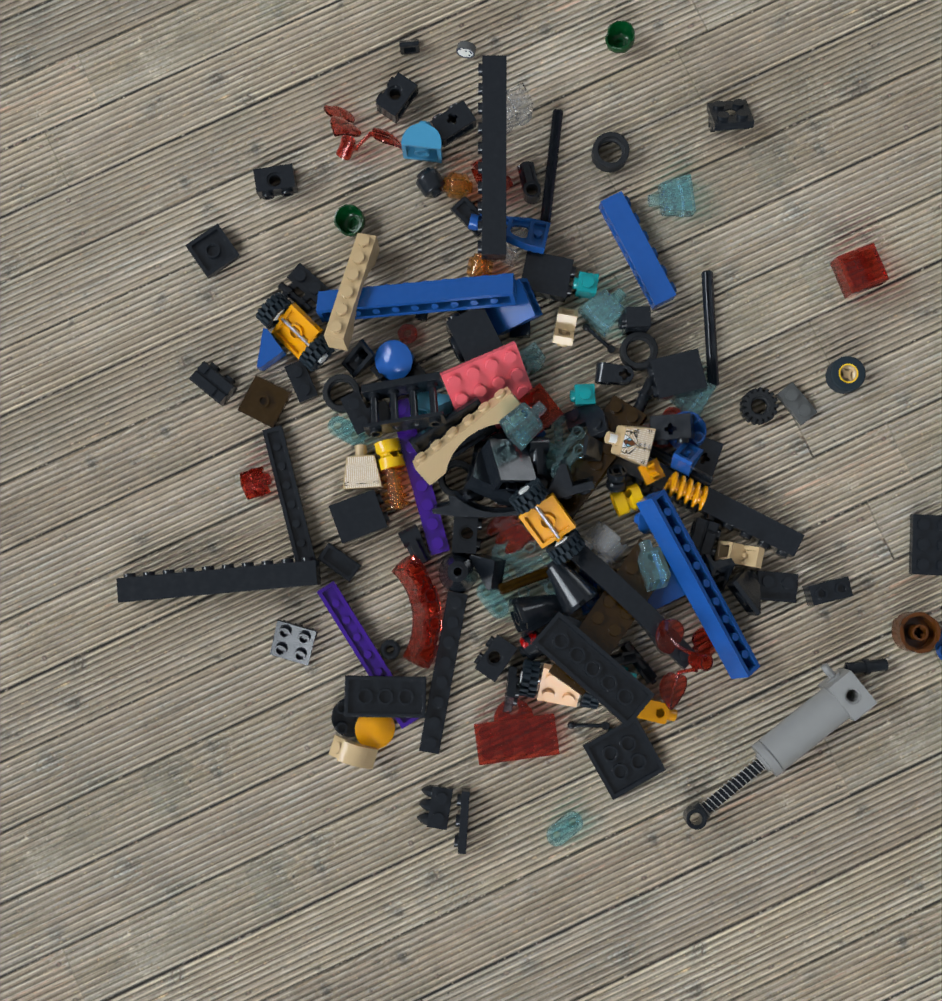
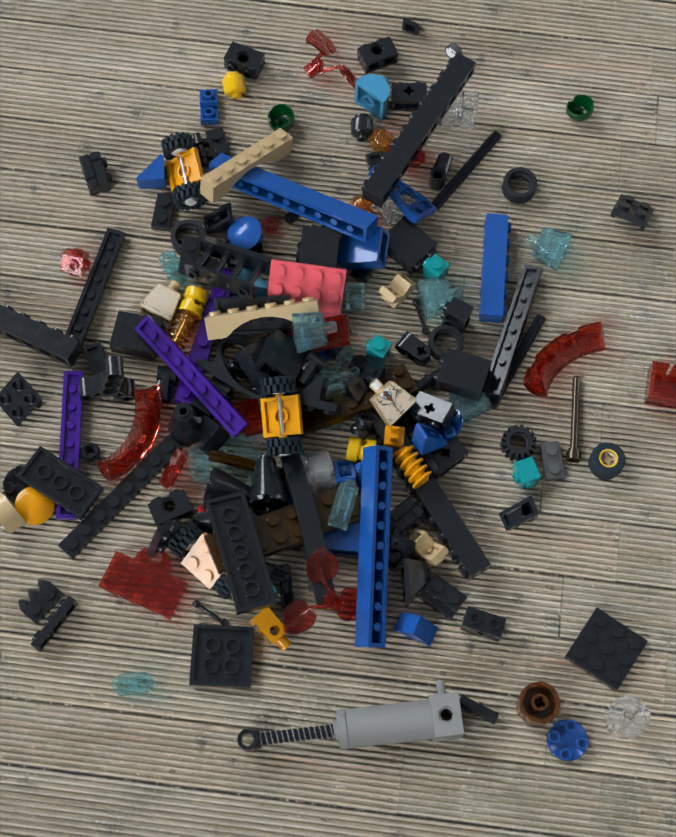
camera: 25 degrees right, 15 degrees down
(213, 251) = (162, 82): black plate -> none
(264, 401) = (124, 210): dark brown plate -> none
(273, 249) = (209, 107): none -> blue slope
(283, 213) = (234, 85): none -> yellow head
(367, 582) = (108, 382): none -> black beam
(437, 528) = (191, 376): none -> dark purple plate
(473, 620) = (173, 468): none -> clear red slope
(625, 529) = (343, 470): none -> blue slope
(691, 299) = (512, 330): none -> black plate
(744, 298) = (560, 353): none -> clear red brick
(770, 629) = (416, 628): none -> blue slope
(782, 430) = (526, 473): none -> teal brick
(800, 472) = (519, 513): none -> black slope
(812, 385) = (573, 454): none -> dark brown piece

